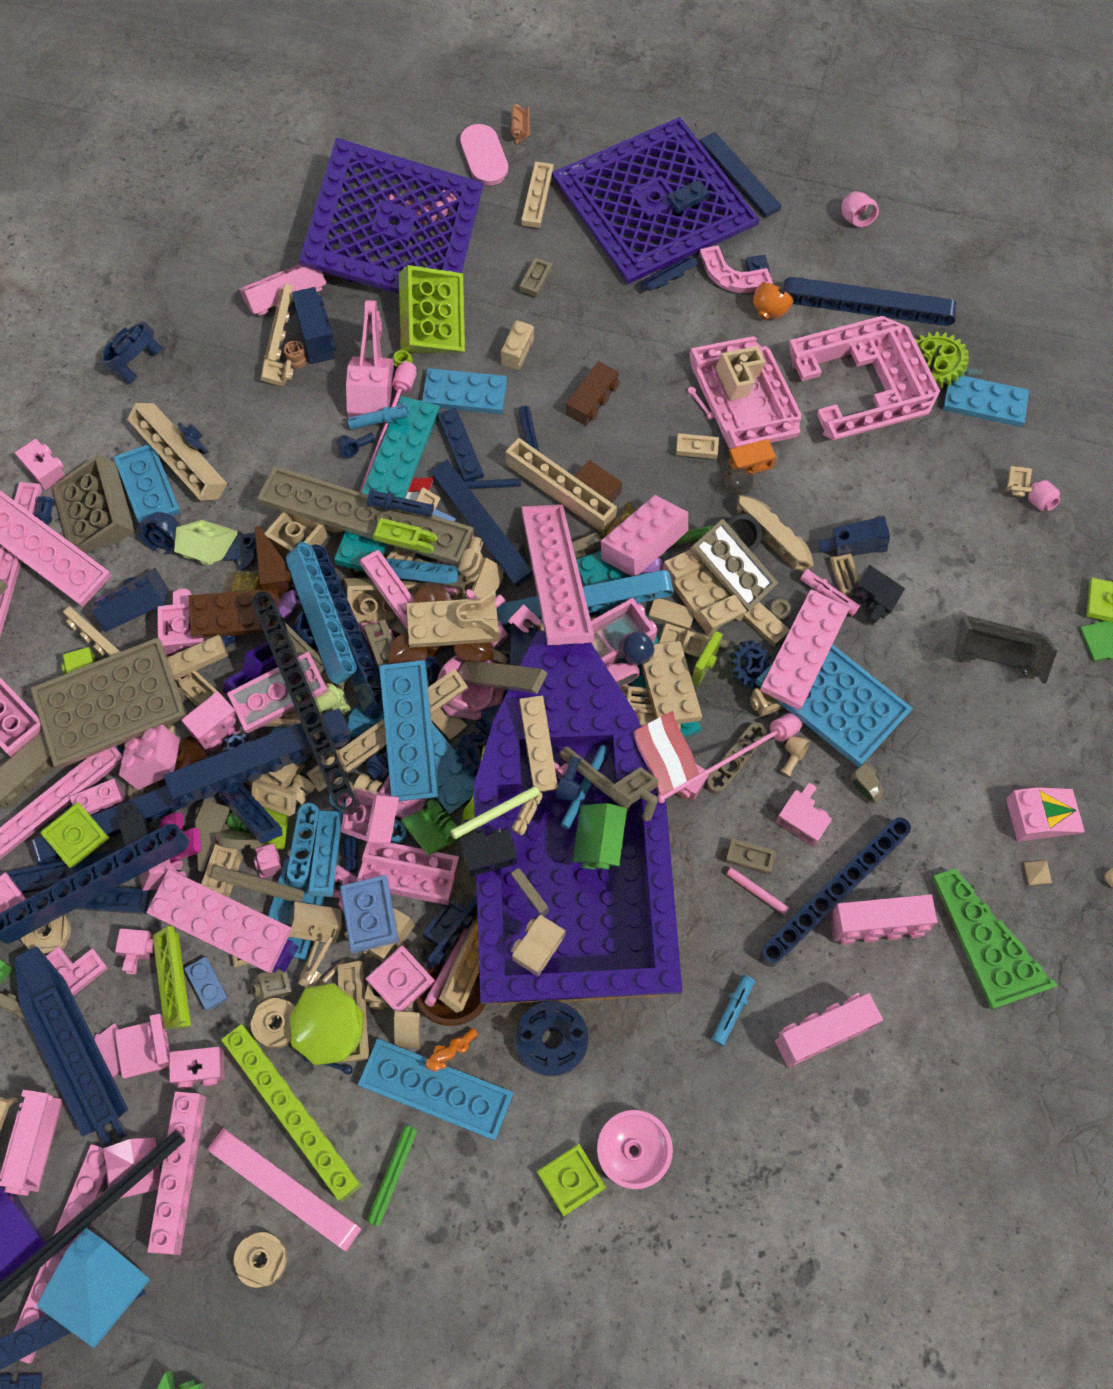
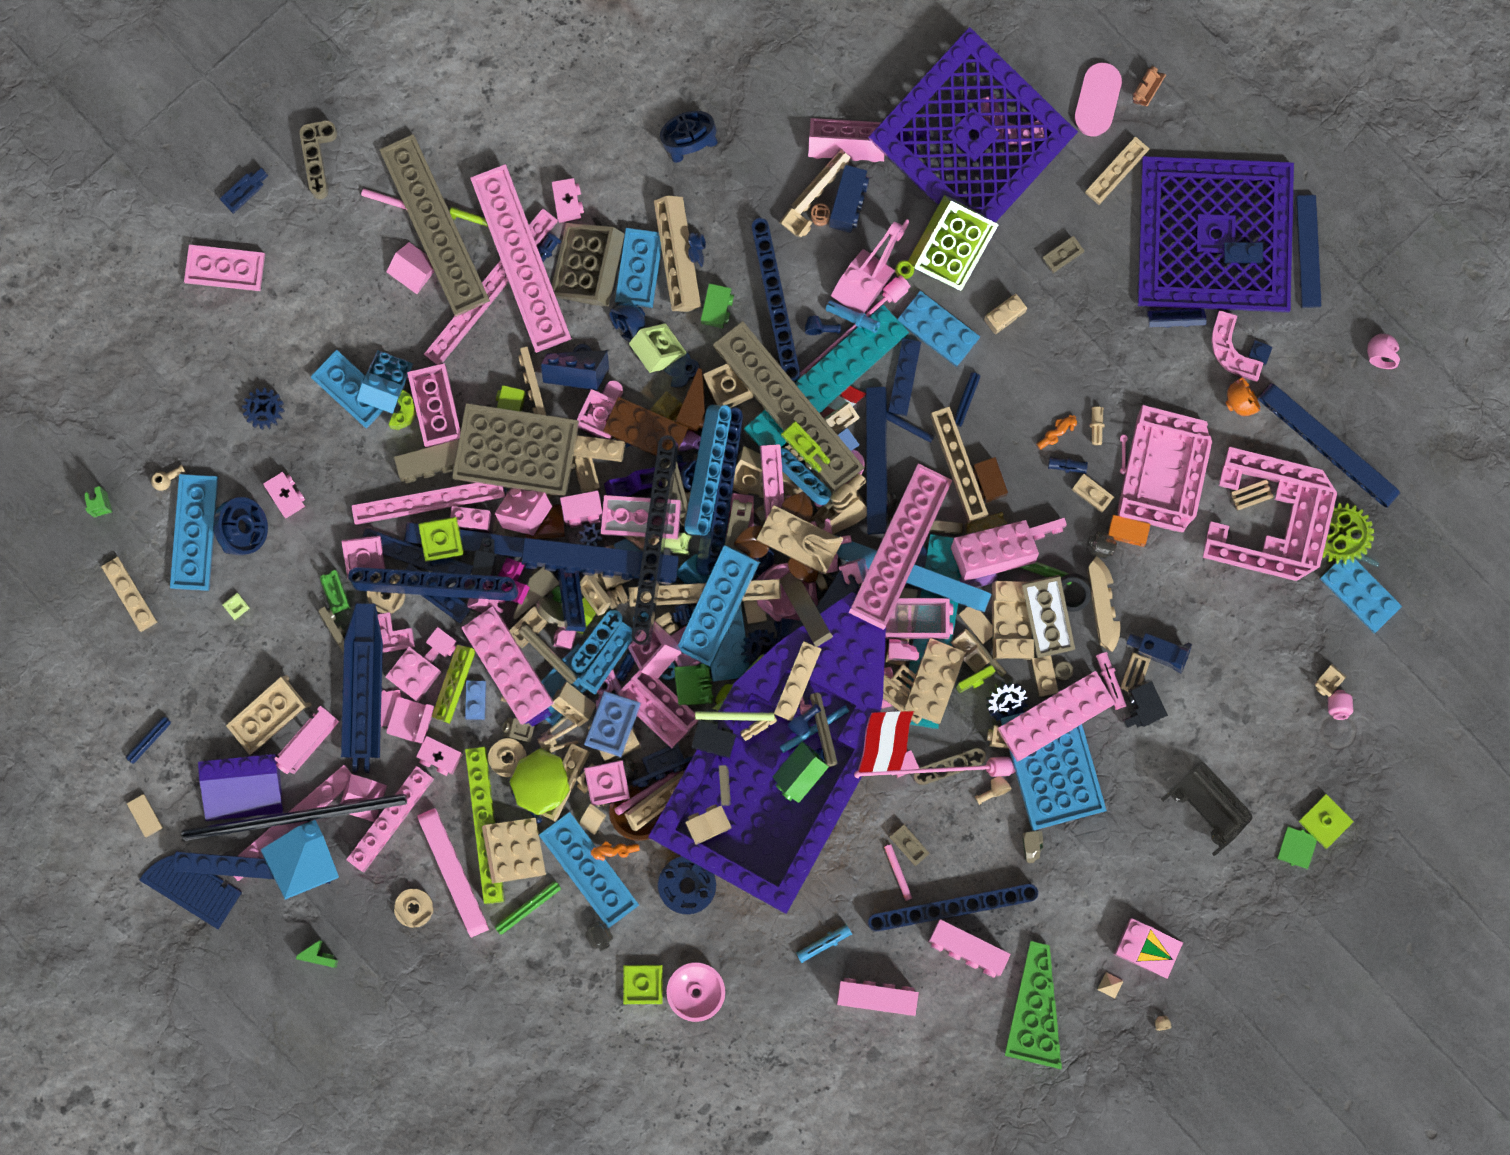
camera: 35 degrees right, 15 degrees up
(120, 996) = (413, 674): none -> bright pink brick
(242, 476) = (716, 306): none -> bright green brick
(251, 398) = (775, 291): none -> dark blue beam
(338, 1119) = (513, 850): none -> tan plate
(390, 501) = (811, 409): dark blue pin -> none
(490, 1156) = (599, 936): none -> clear smoke head
(592, 393) = (1039, 395): reddish brown brick -> none
(631, 410) = (1061, 427): none -> orange animal
(634, 787) = (843, 757): dark tan plate -> none
(636, 648) = (924, 641): dark blue hair -> none
(646, 440) = (1067, 465): none -> dark blue pin
(661, 390) = (1097, 425): none -> tan axle
(681, 492) = (1055, 527): none -> bright pink plate
(738, 371) = (1164, 448): tan brick -> none
(802, 818) = (965, 840): bright pink hinge -> none
(843, 364) = (1266, 489): none -> tan tile

